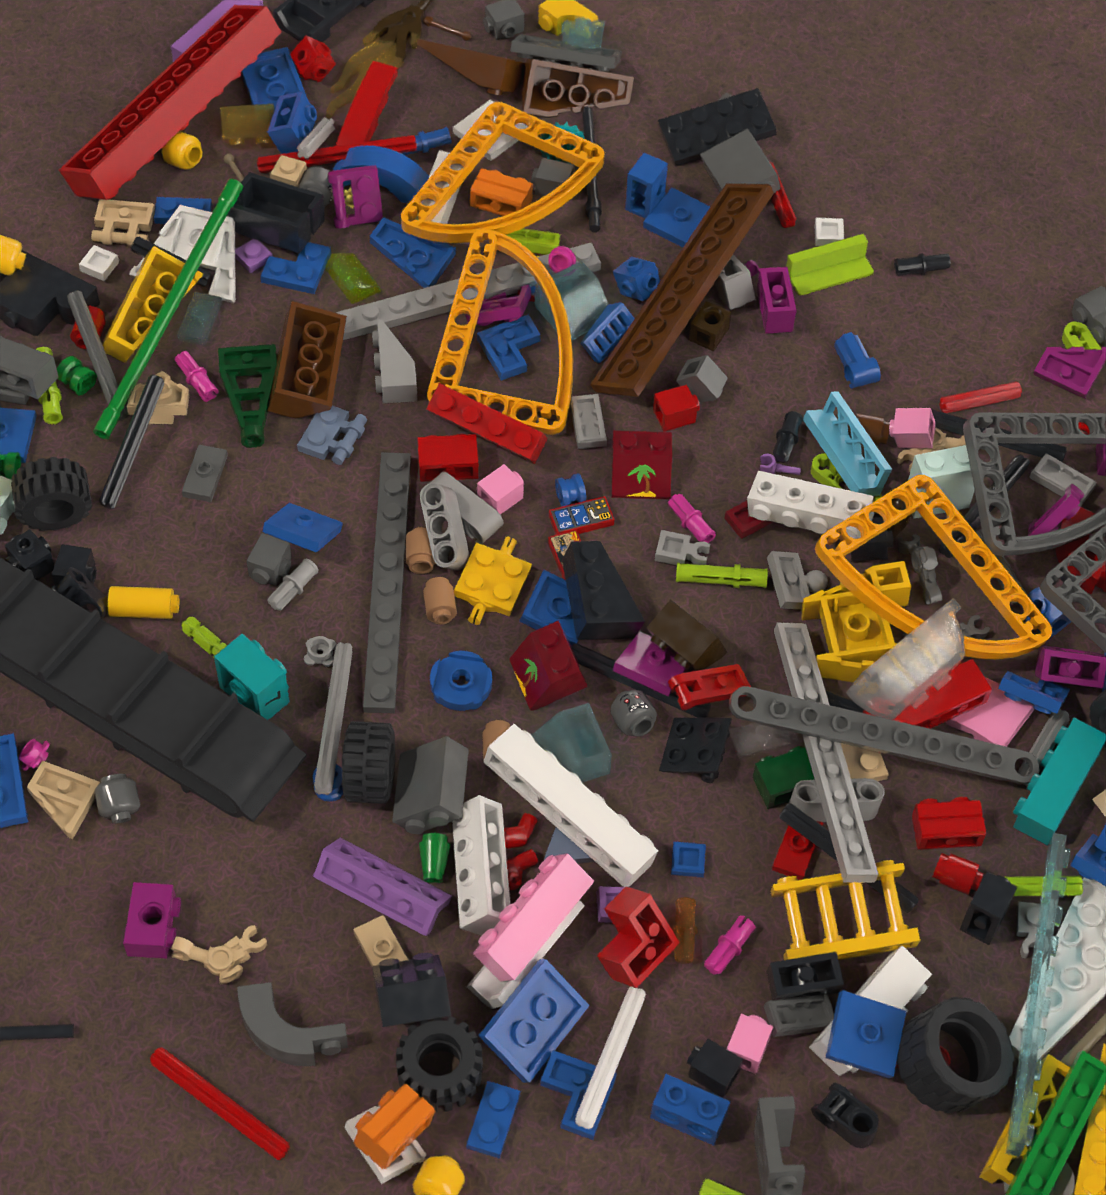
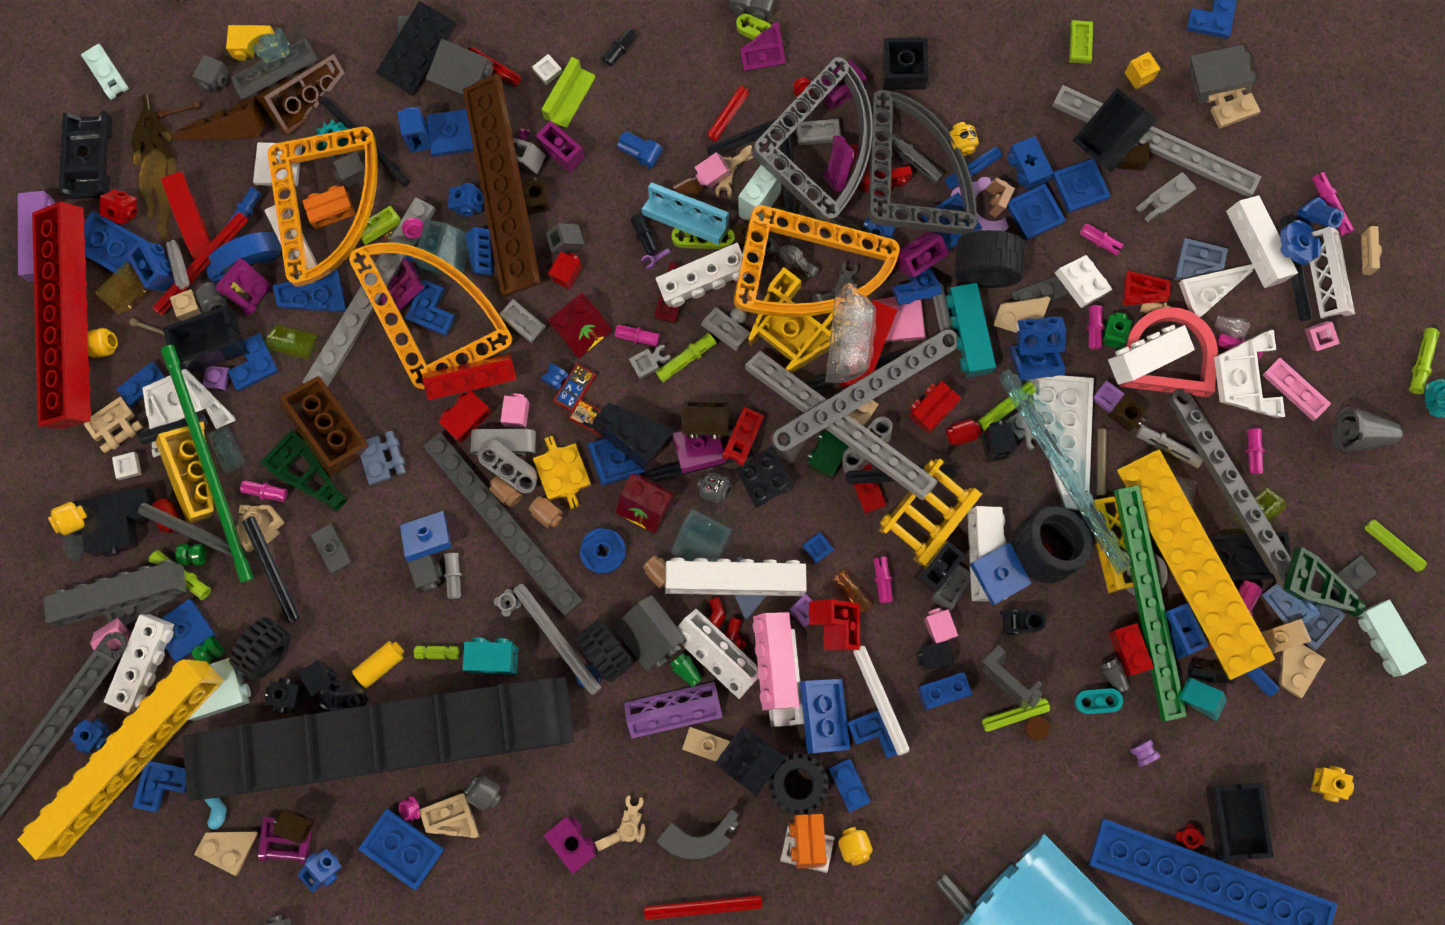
camera: 35 degrees left, 20 degrees up
(396, 366) = (381, 384): light grey slope -> none

